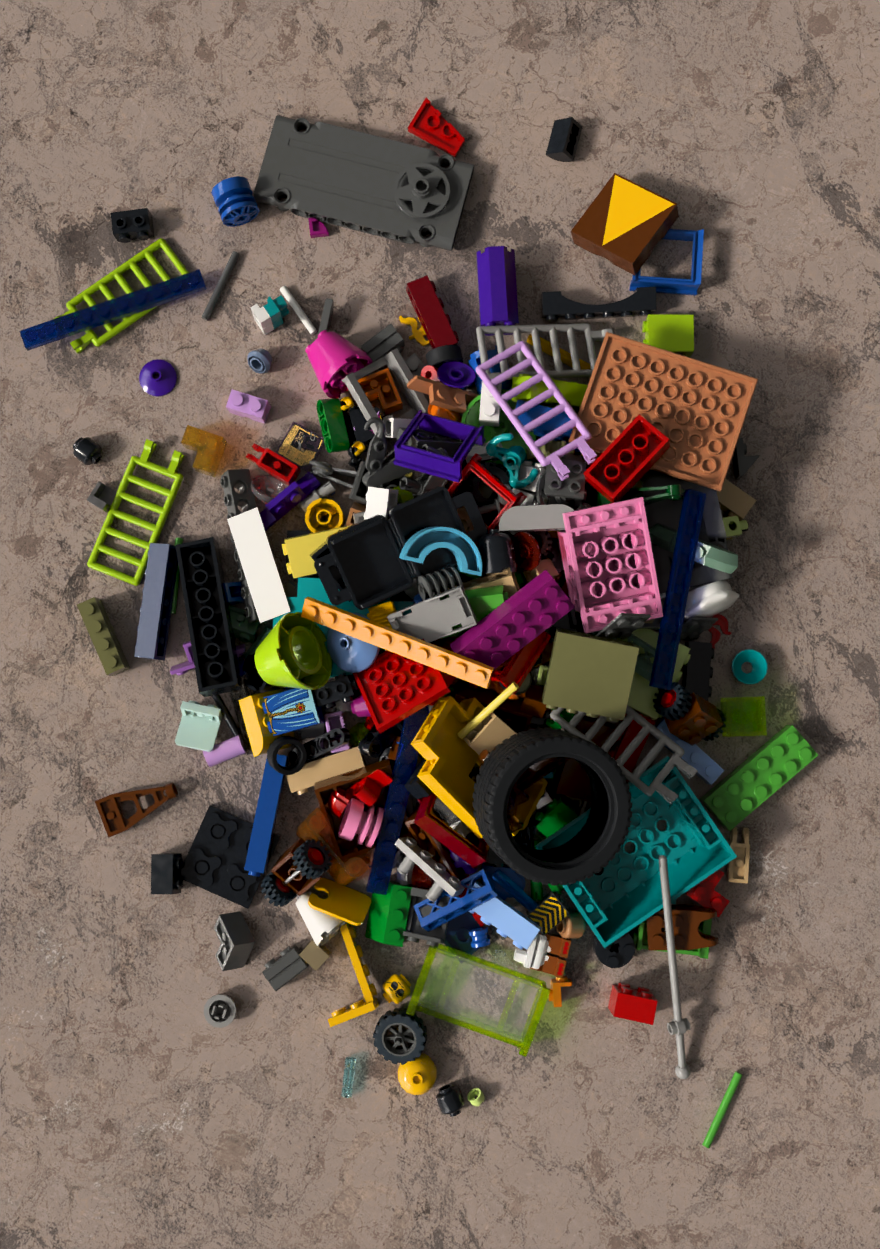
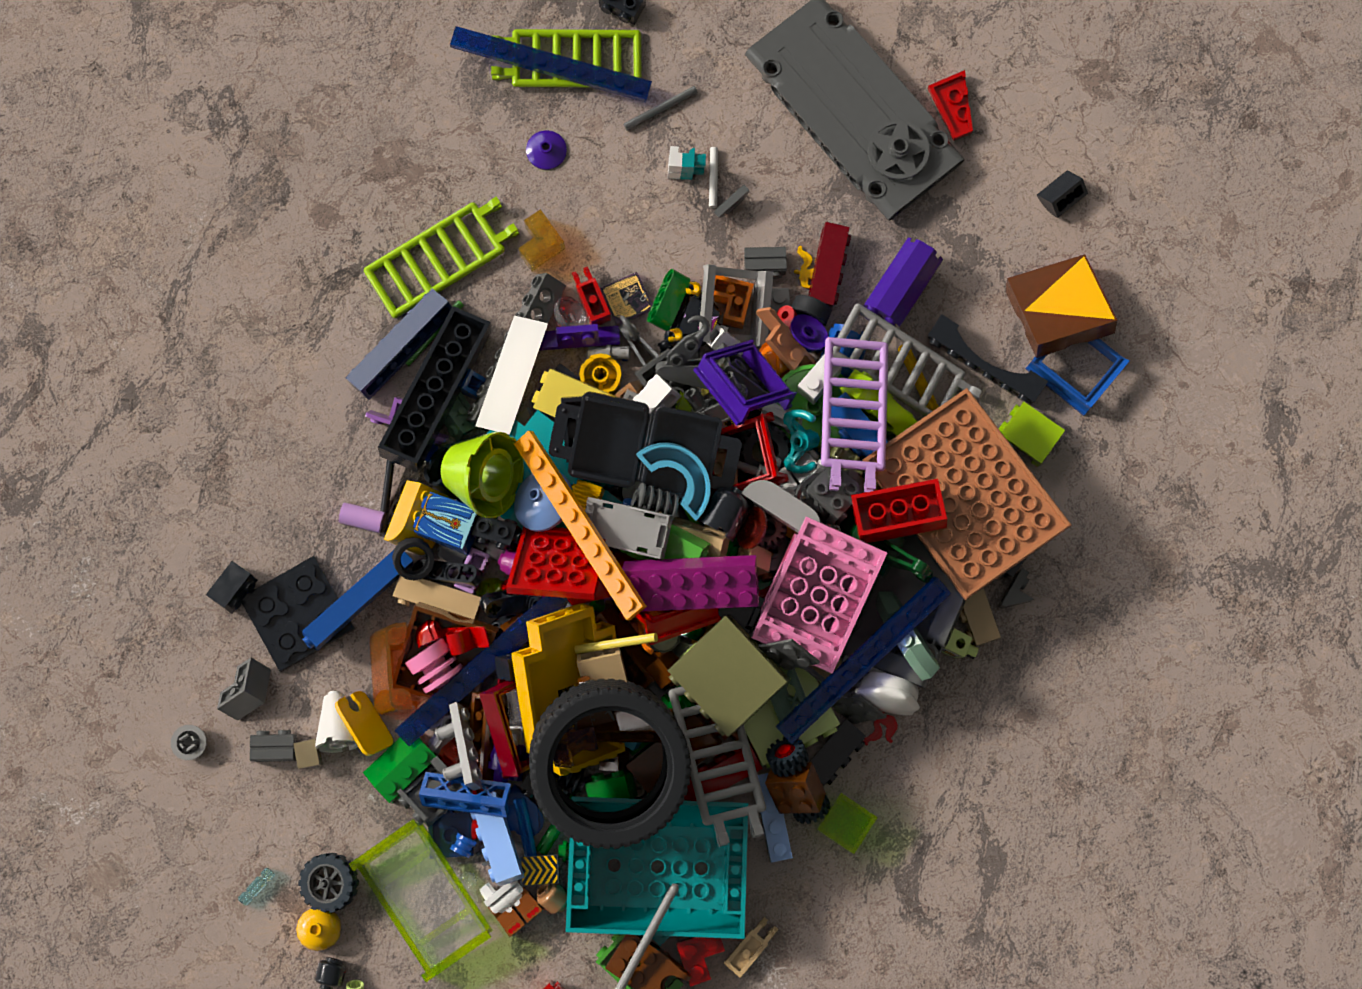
camera: 30 degrees right, 5 degrees down
(87, 451) = (437, 170): black head -> none
(102, 496) = (420, 219): flat silver panel -> none
(103, 636) = (331, 341): olive brick -> none
(113, 817) = (223, 501): reddish brown plate -> none
(198, 726) = (356, 478): light aqua bracket -> none
(235, 201) = (726, 44): blue wheel -> none
(248, 406) = (606, 230): lavender brick -> none
(259, 360) = (646, 197): sand blue cone -> none
(296, 871) = (345, 667): brick -> none
(317, 228) = (783, 117): magenta tile -> none
(333, 360) = (711, 242): dark pink cone -> none
(362, 973) = (337, 800): yellow bracket -> none
(396, 989) = (356, 838): yellow head -> none
(555, 991) = (493, 948): orange bracket -> none
(615, 957) = (572, 956): black brick -> none
(758, 663) = (896, 779): teal piece -> none
(758, 777) = (820, 889): bright green brick -> none

